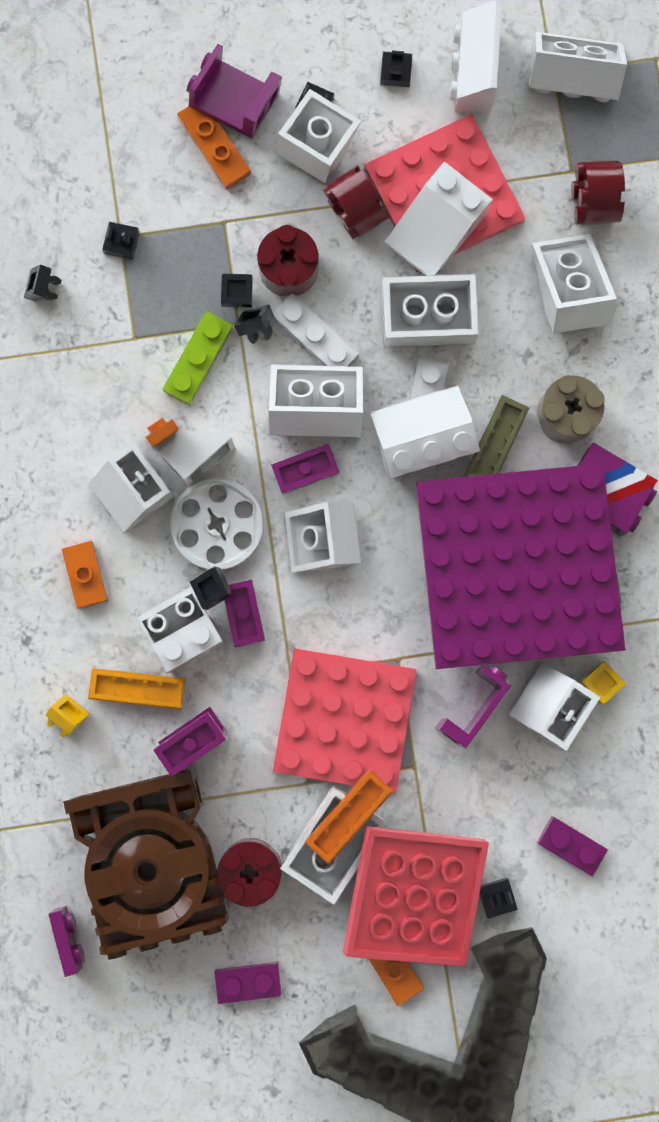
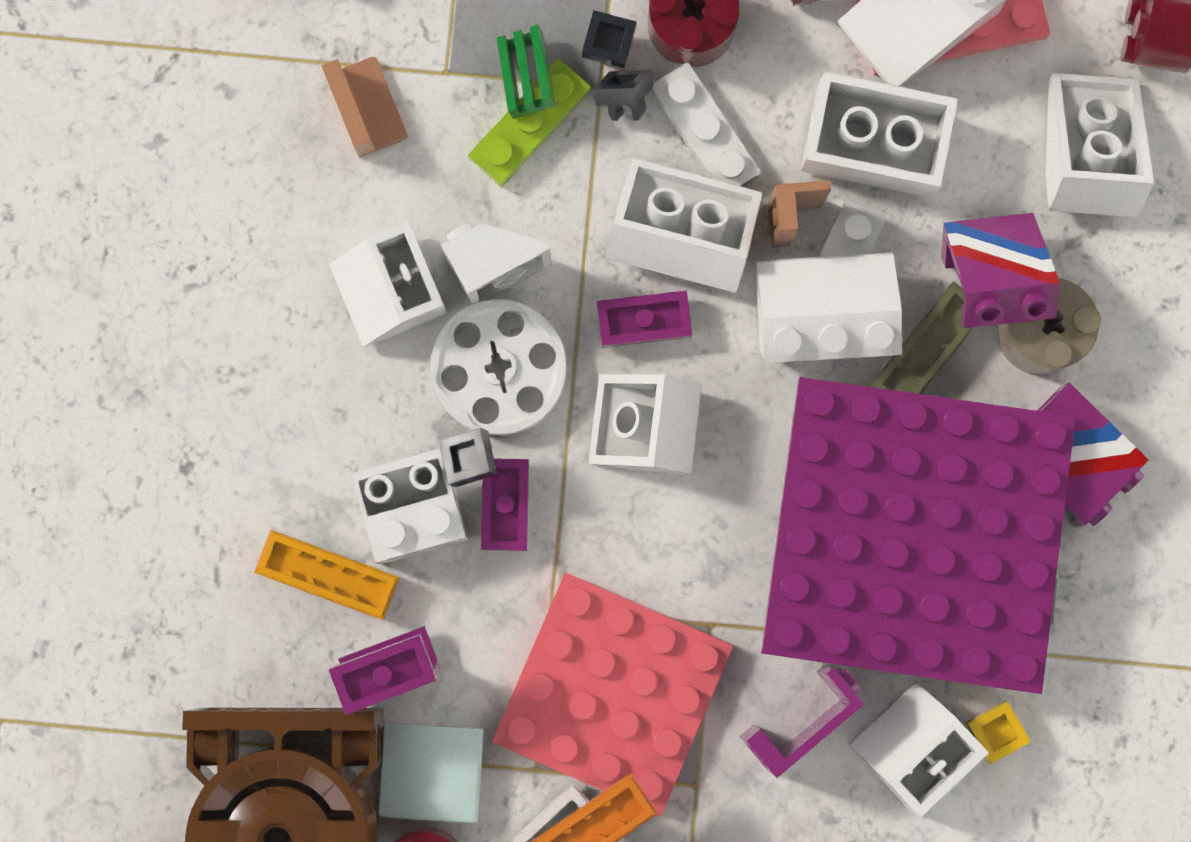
camera: 15 degrees right, 0 degrees up
(66, 715) = (218, 588): yellow tile -> none
(84, 574) = (292, 393): orange plate -> none
(86, 372) = (365, 105): none -> nougat panel
(161, 431) = (451, 216): orange plate -> none
(178, 308) = (519, 43): none -> green tile
(238, 802) = (431, 772): none -> light aqua slope
(379, 369) = (784, 205): none -> nougat panel
(531, 379) = (1001, 269): none -> magenta panel

